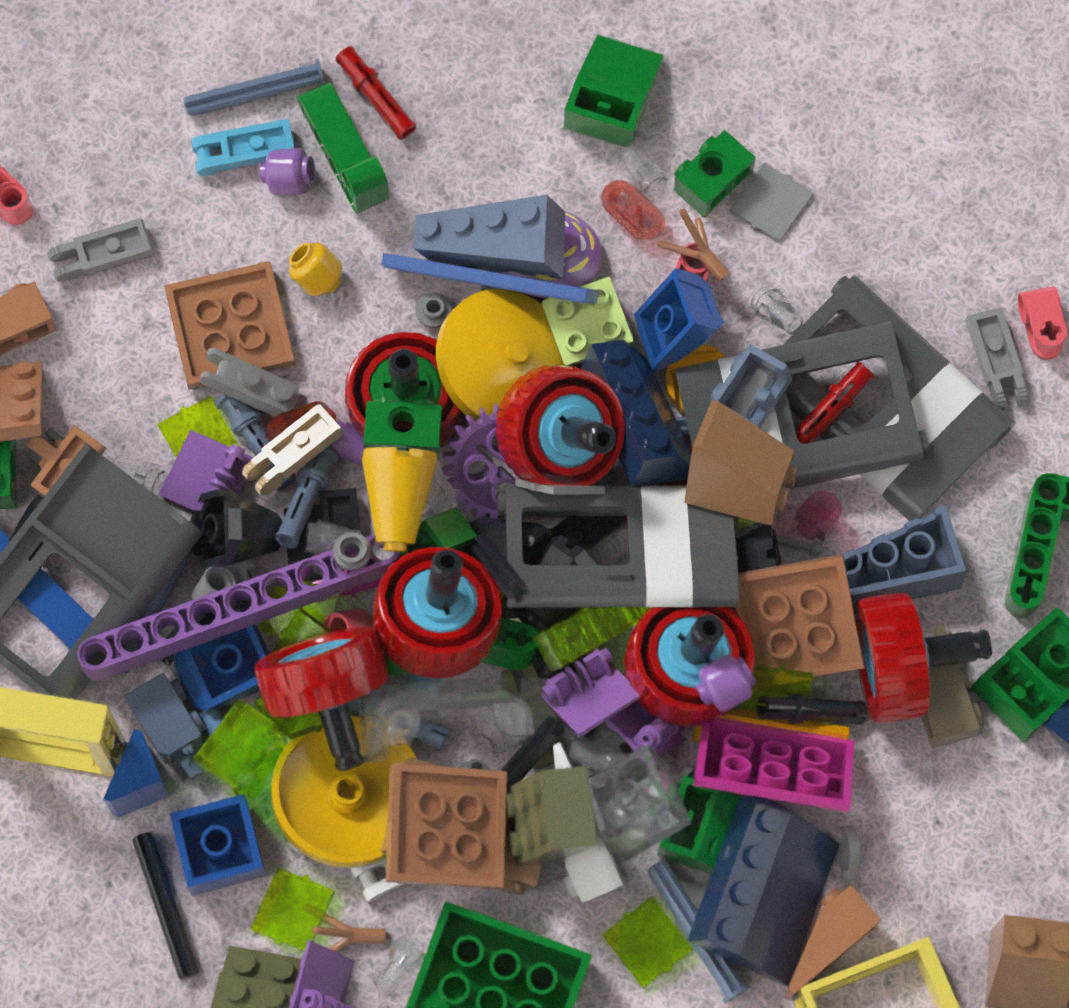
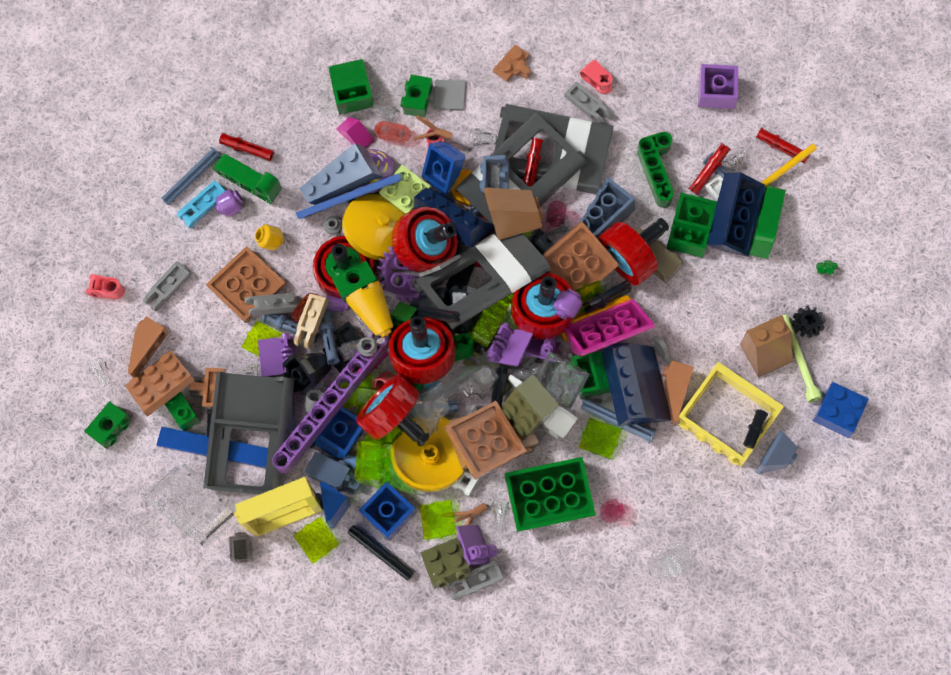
camera: 25 degrees left, 0 degrees up
(76, 819) = (316, 540): none -> clear neon green piece
(570, 176) = (355, 132): none -> dark pink slope
(913, 213) = (513, 64): none -> nougat hinge

